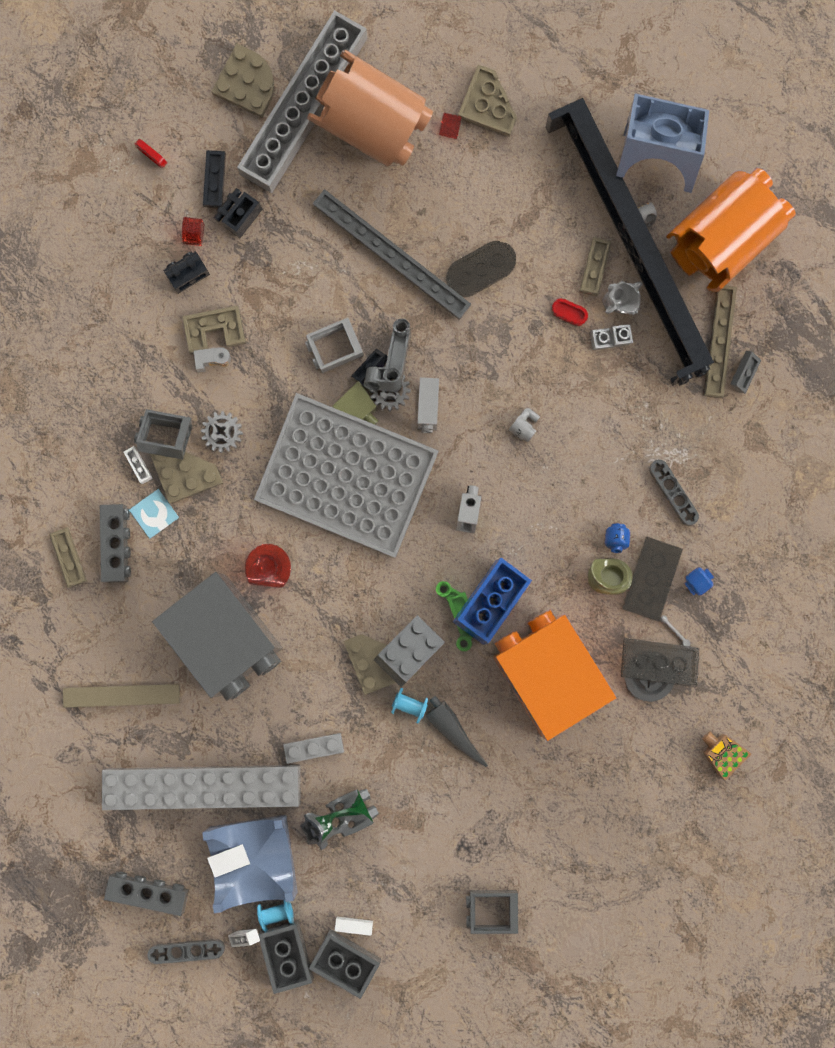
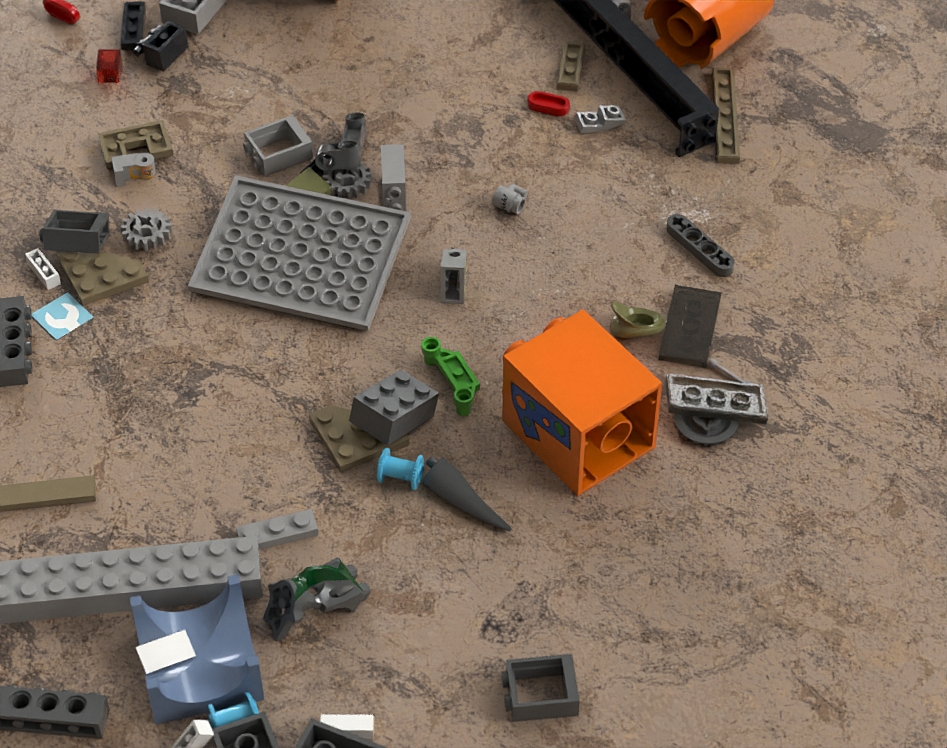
camera: 10 degrees left, 35 degrees down
(186, 271) = (101, 95): black brick -> none
(219, 637) = (148, 395): dark grey brick -> none
(268, 566) = (207, 346): clear red hat -> none
(392, 254) = (340, 70): dark grey plate -> none
(481, 268) = (441, 76): clear smoke tile -> none
(504, 601) = (480, 355): blue brick -> none
(617, 537) = (639, 286): blue head -> none
(622, 298) = (605, 81): light grey hair -> none
(699, 581) = (748, 319): blue head -> none
(724, 754) = (820, 486): medium nougat torso -> none
(745, 372) = (760, 133): dark grey plate -> none

